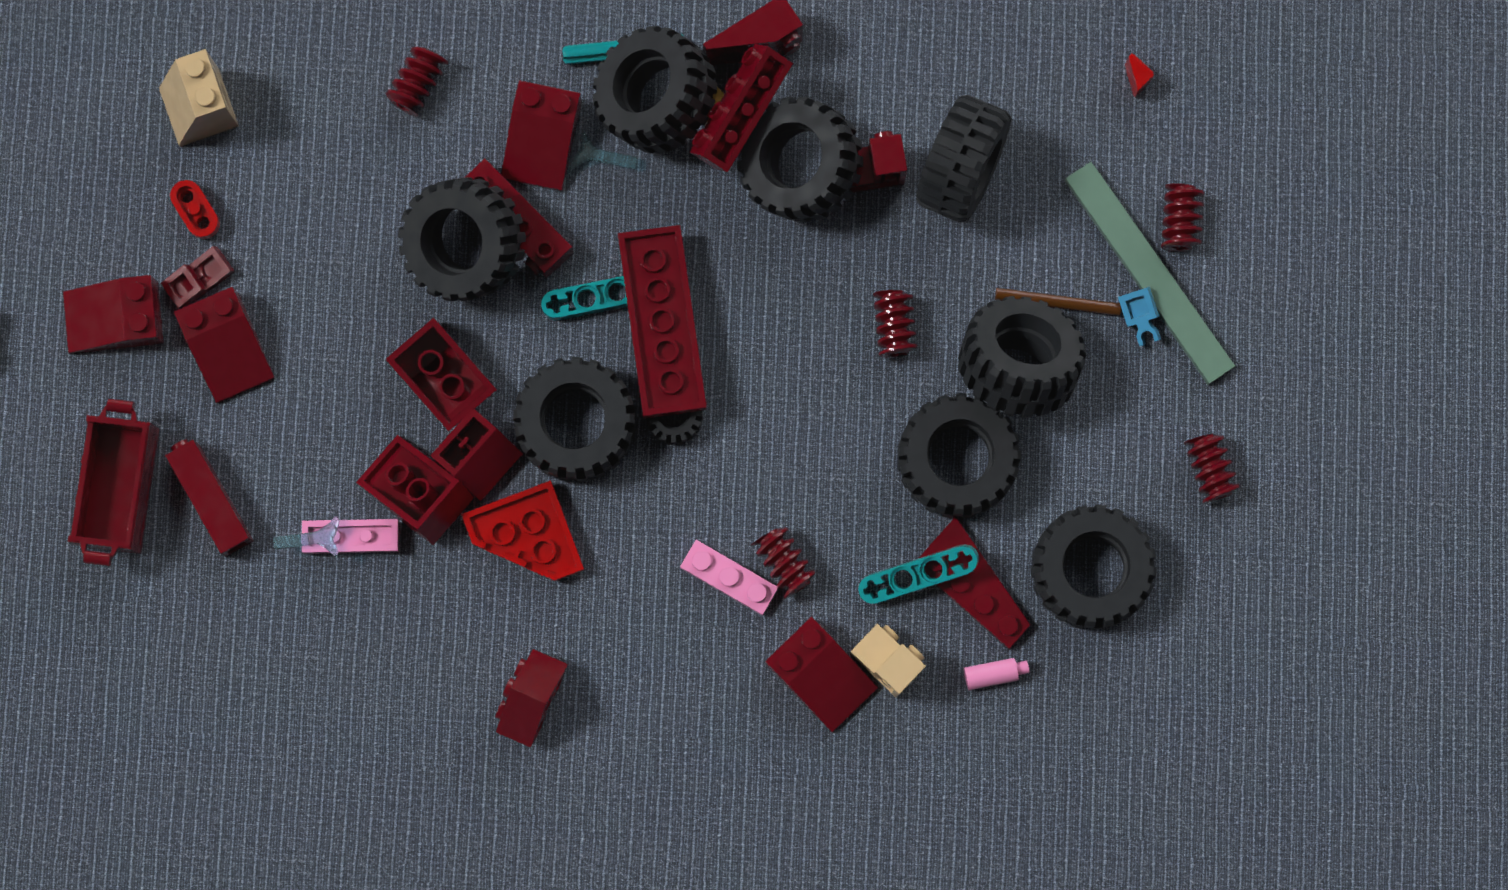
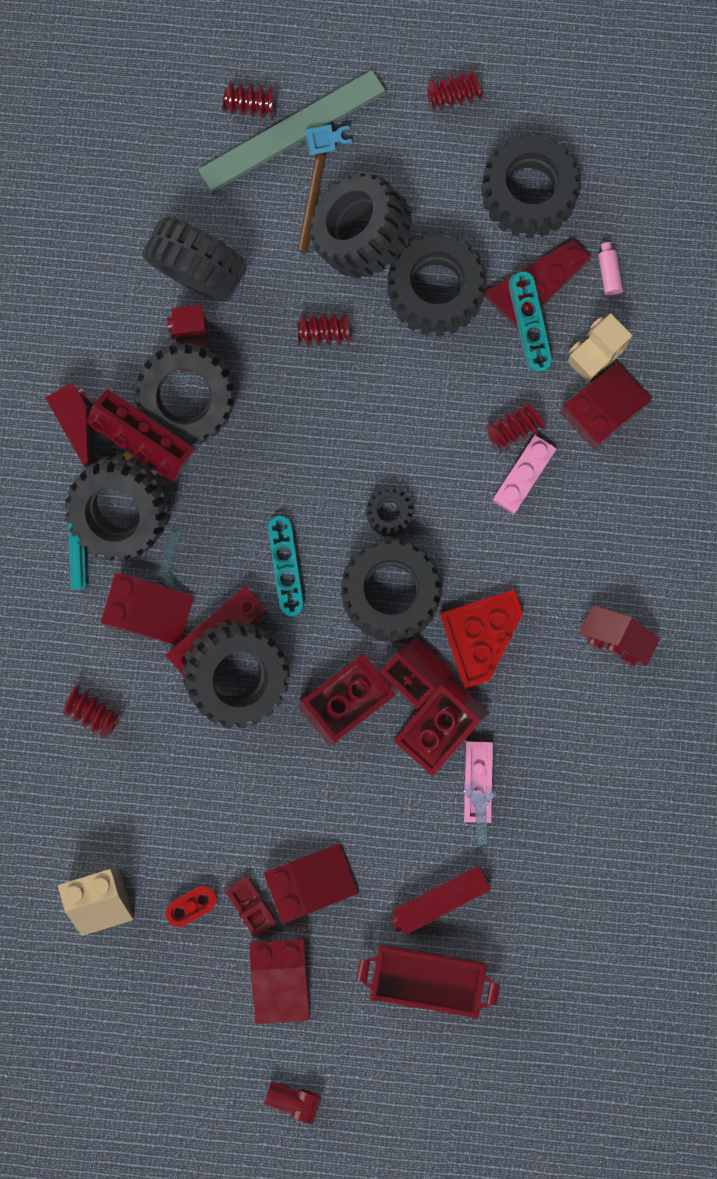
camera: 85 degrees left, 0 degrees up
(662, 321) = (313, 514): dark red plate -> none
(1138, 74) = (129, 127): red slope -> none

